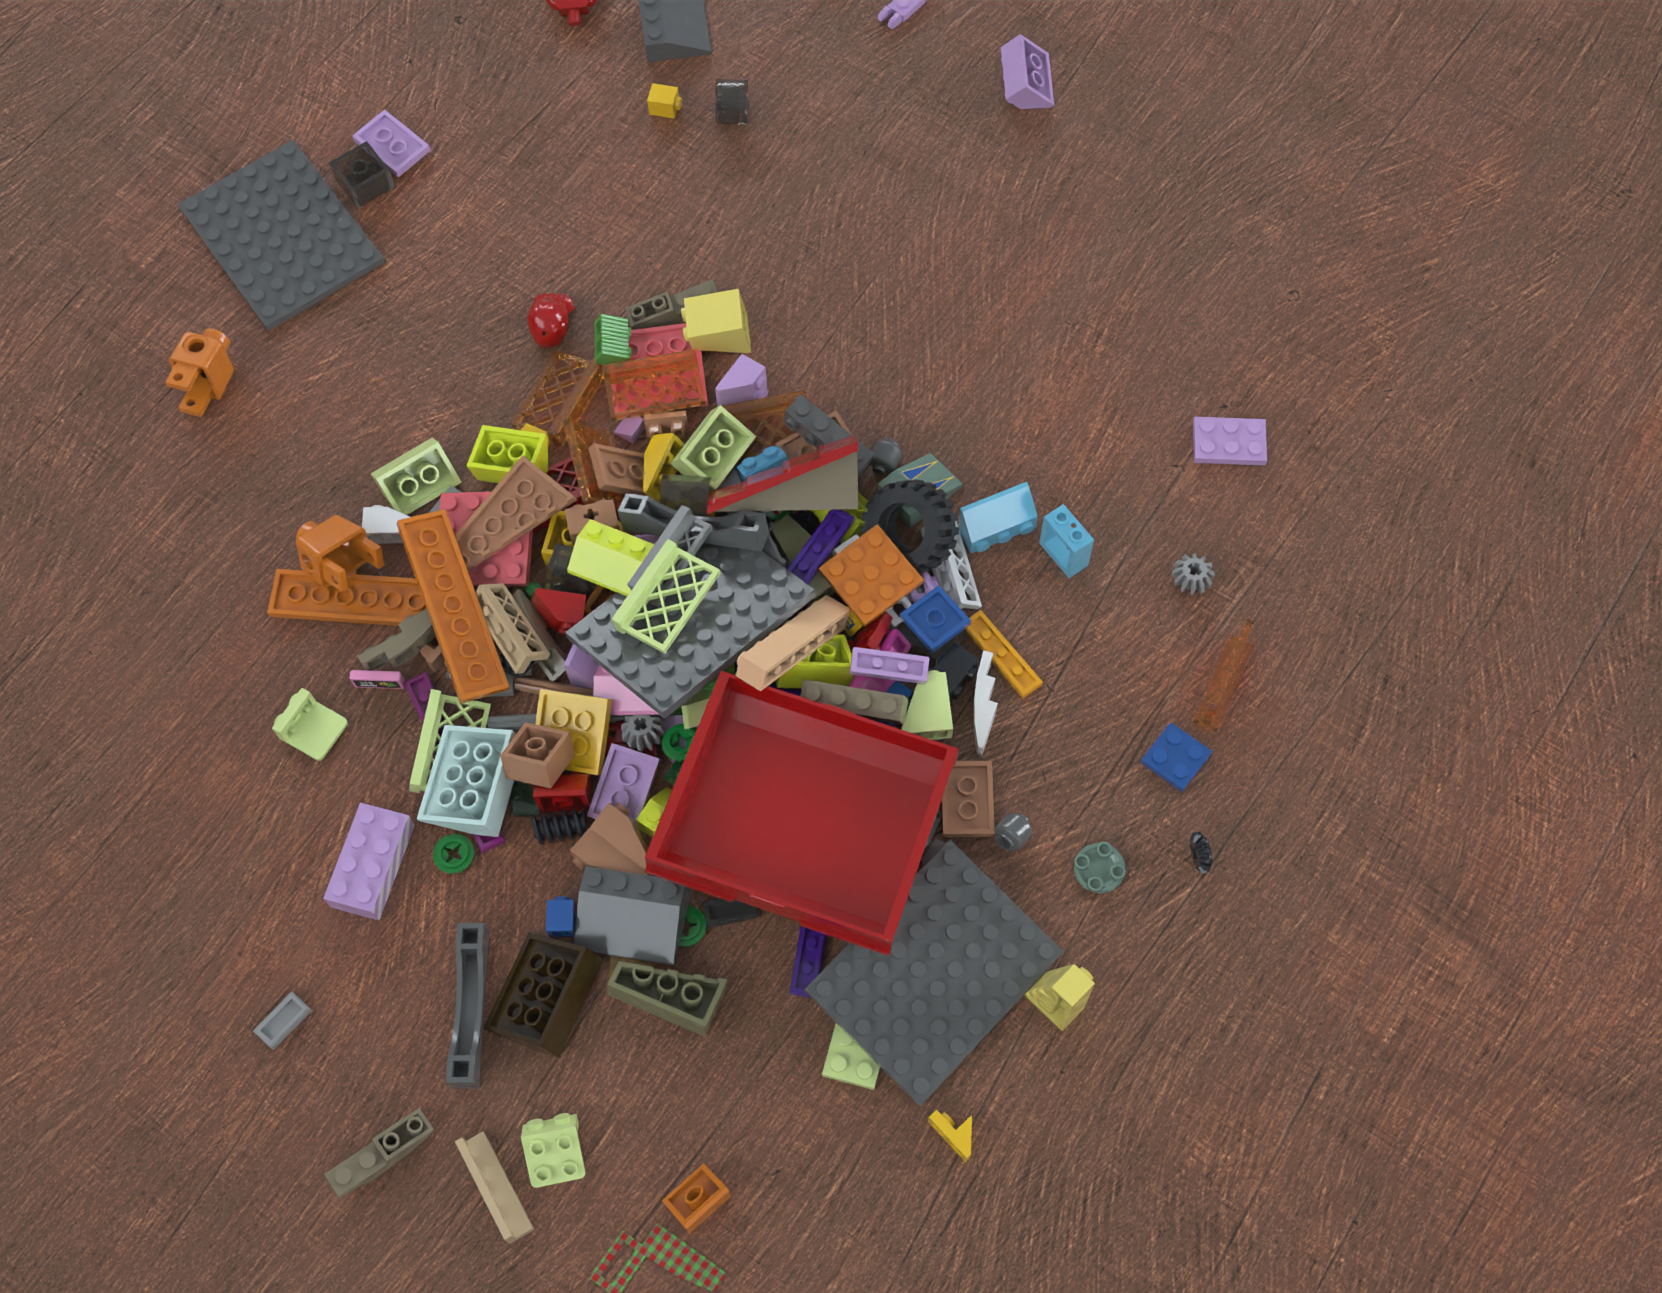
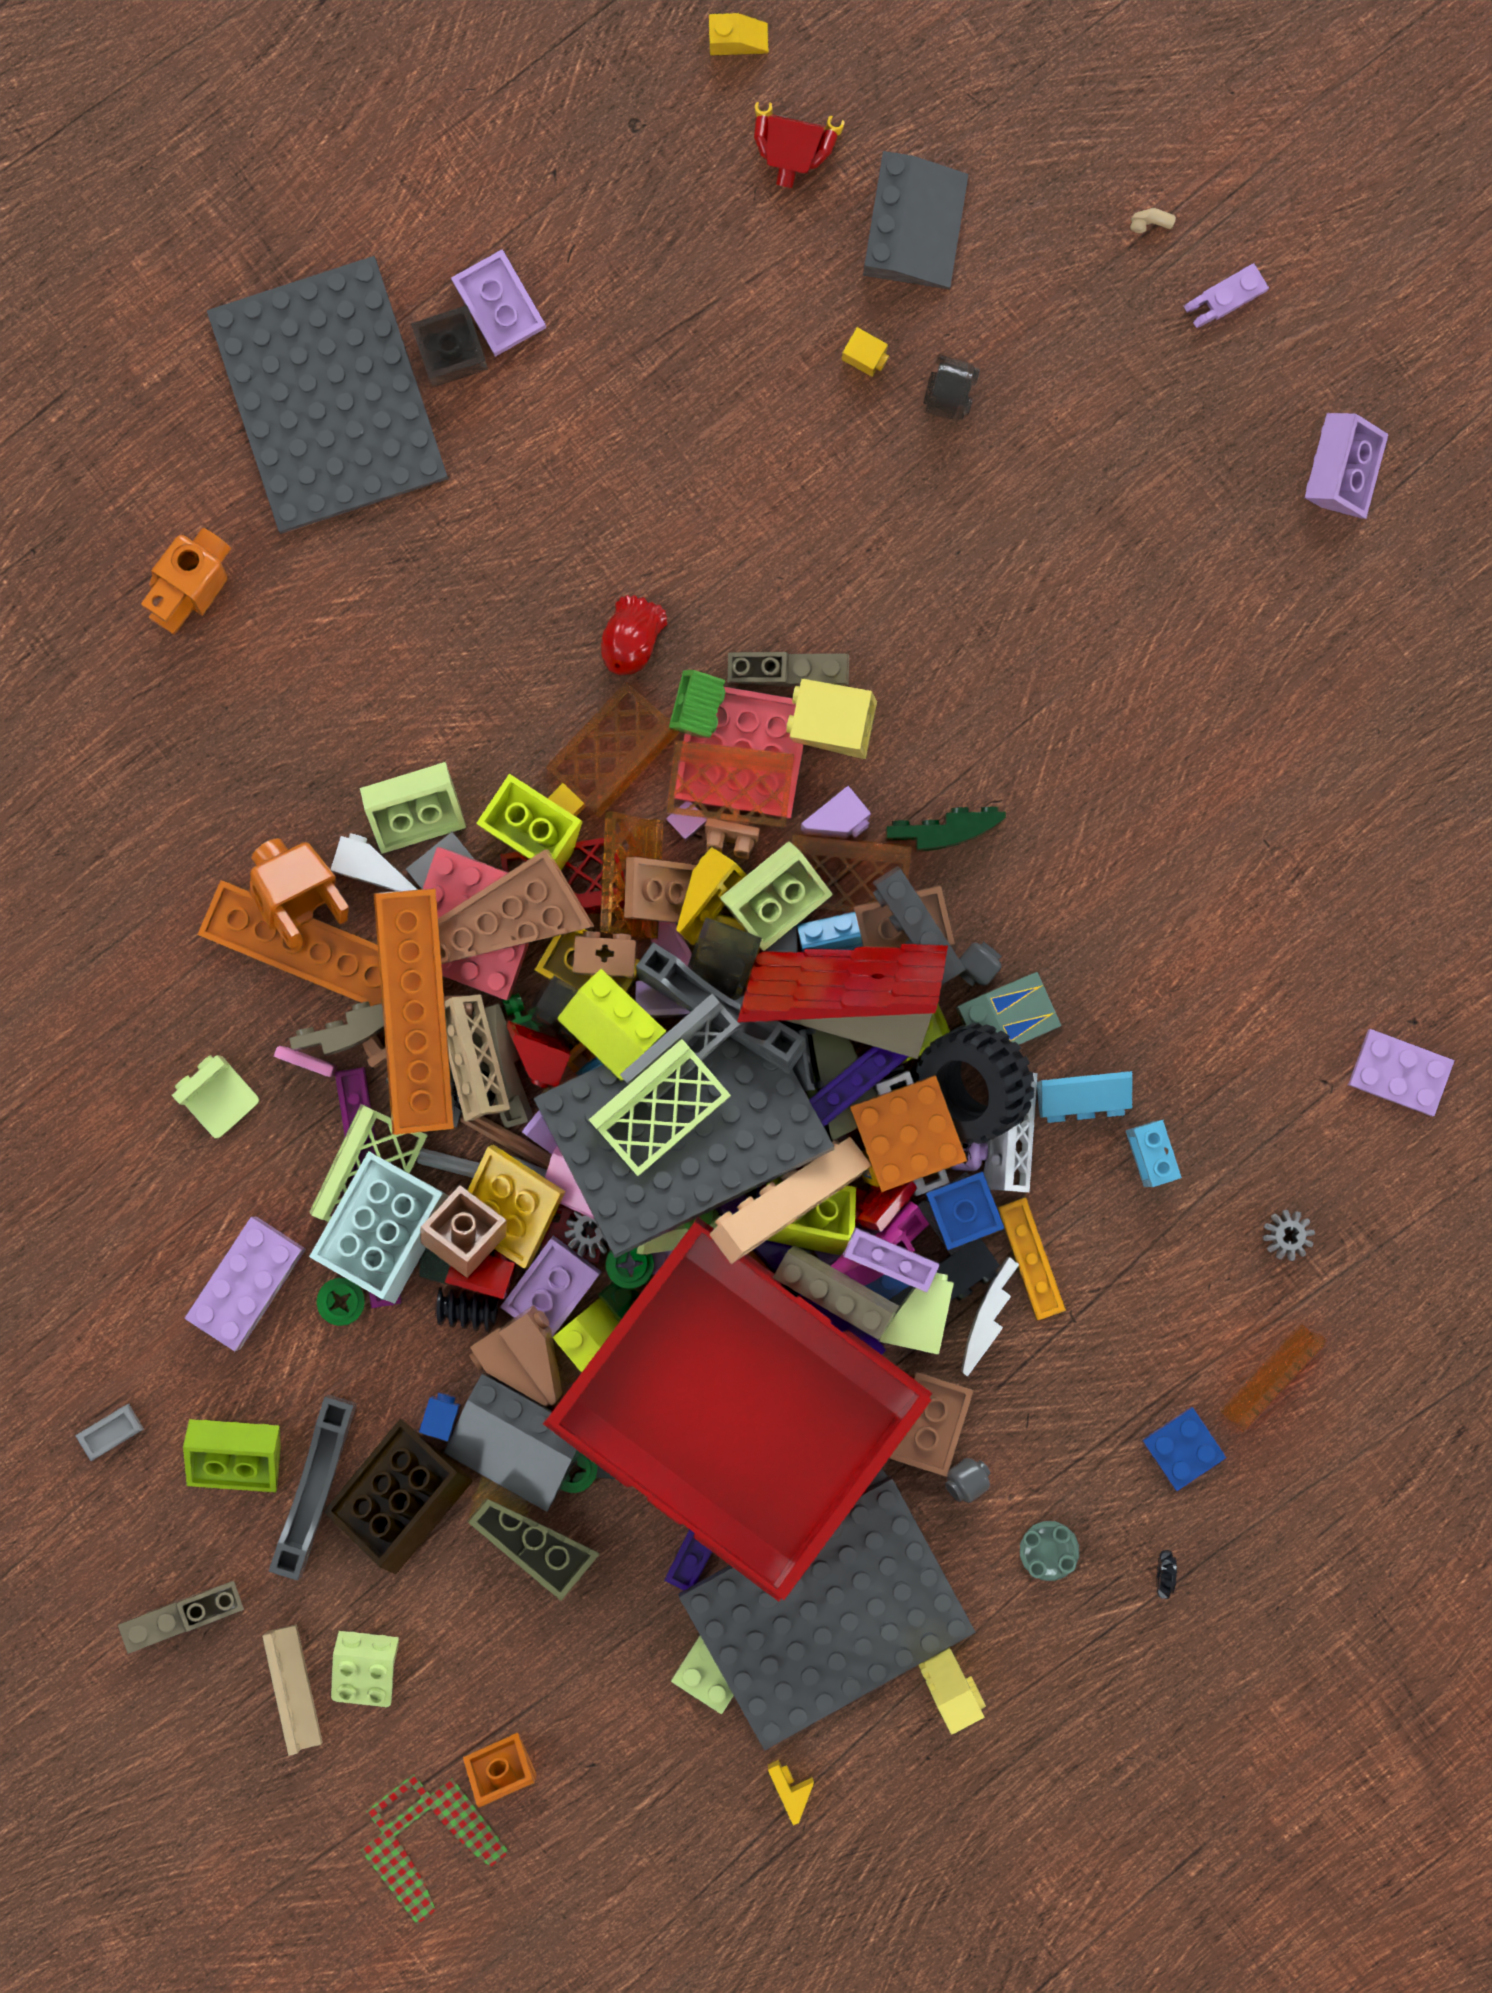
camera: 15 degrees right, 20 degrees up
(392, 1004) = (232, 1455): none -> lime slope
(835, 374) = (958, 828): none -> dark green slope

